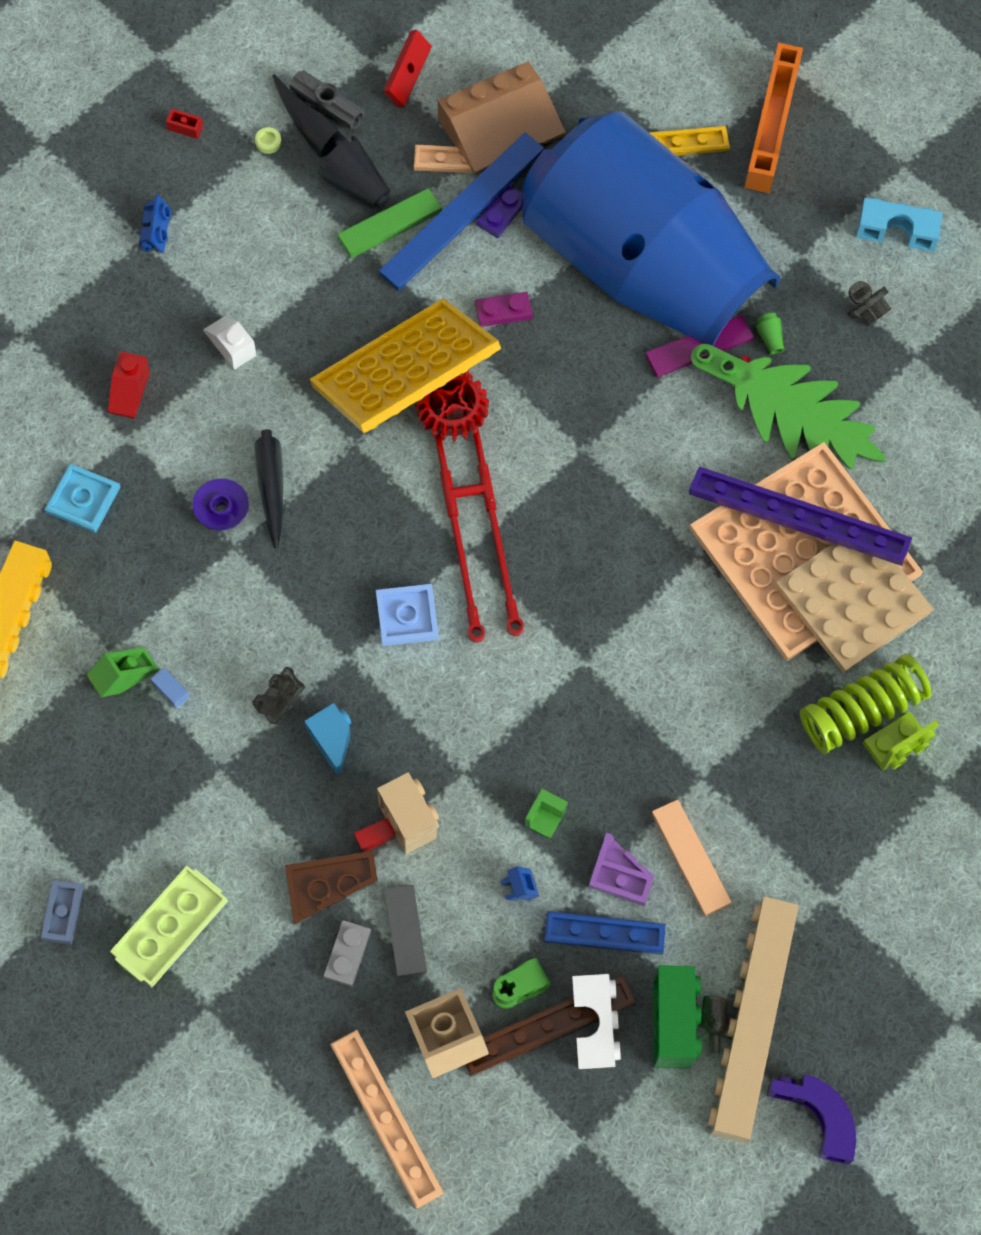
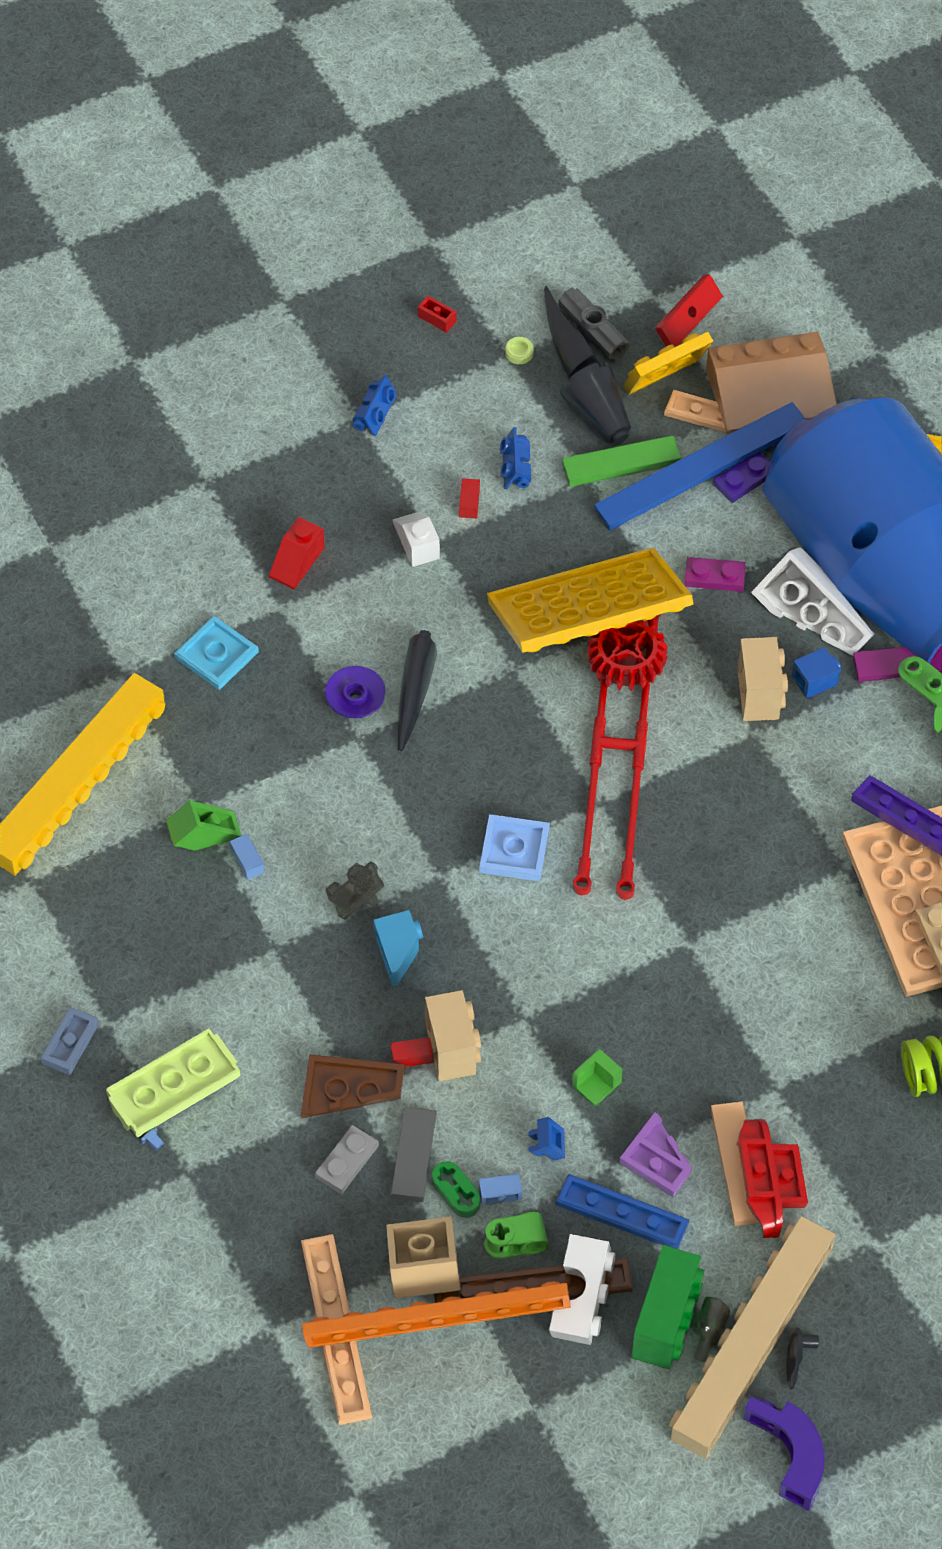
camera: 20 degrees right, 10 degrees down
(166, 984) = (152, 1138): none -> medium blue piece
(266, 292) = (469, 498): none -> red piece
(293, 236) = (514, 450): none -> blue hinge
(404, 121) = (667, 362): none -> yellow plate
(458, 949) = (461, 1185): none -> green beam
(463, 1090) = (426, 1316): none -> orange plate
(492, 943) = (500, 1189): none -> medium blue piece
(576, 399) = (761, 678): none -> tan brick
(593, 311) = (807, 596): none -> white wedge
(620, 379) = (816, 672): none -> blue brick
(725, 864) = (770, 1176): none -> red plate
(793, 1022) = (795, 1353): none -> black bar

